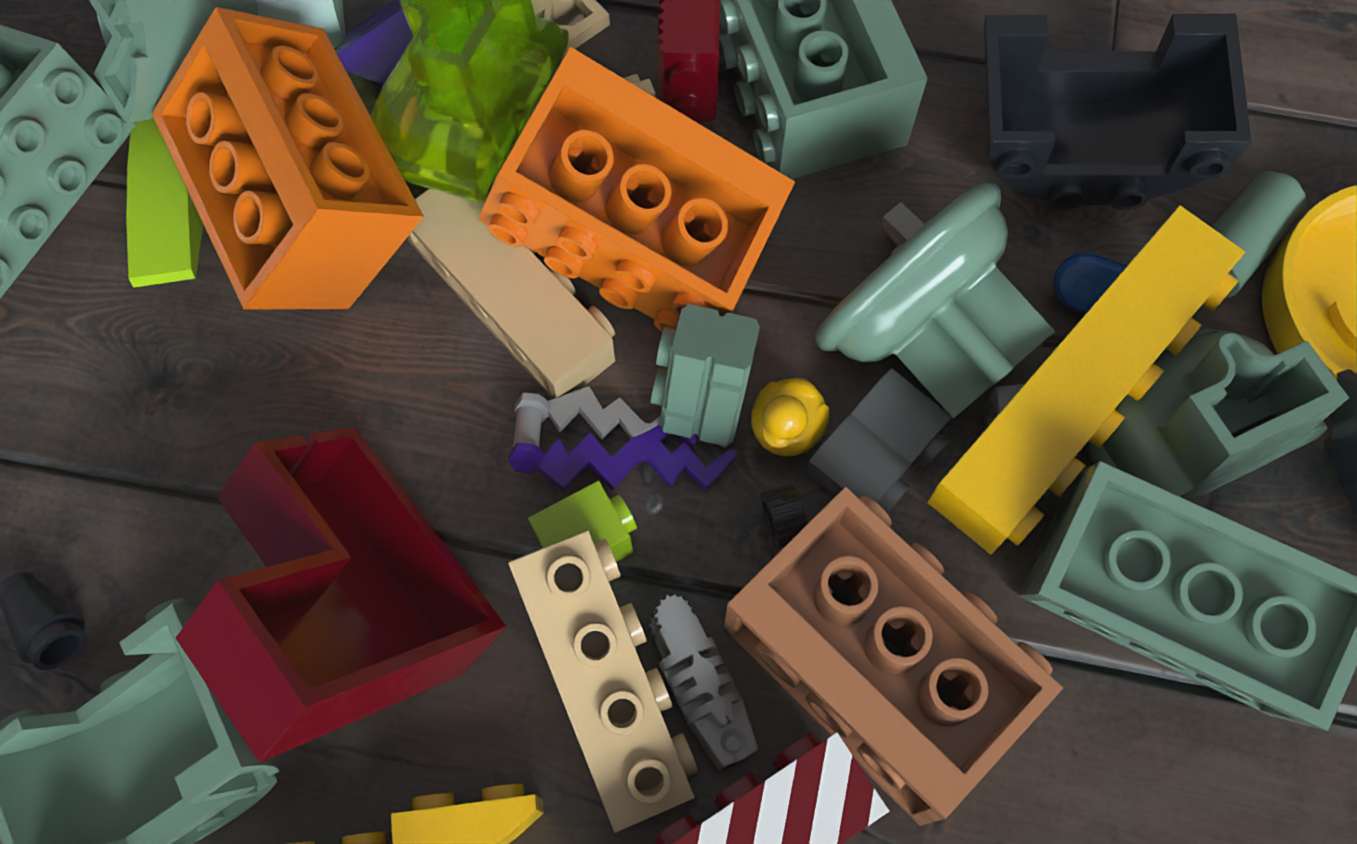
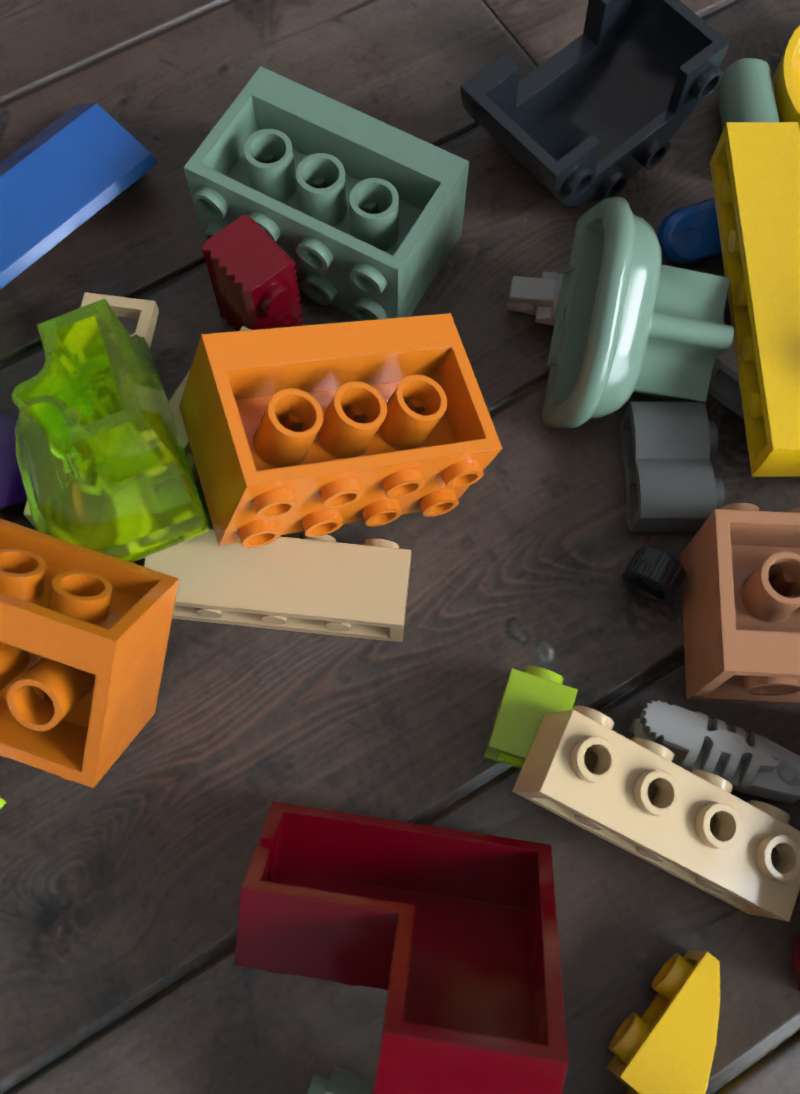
camera: 45 degrees left, 0 degrees up
(643, 445) = (463, 684): dark purple piece -> none
(705, 373) = (514, 515): sand green brick -> none
(789, 417) = (589, 499): yellow animal -> none

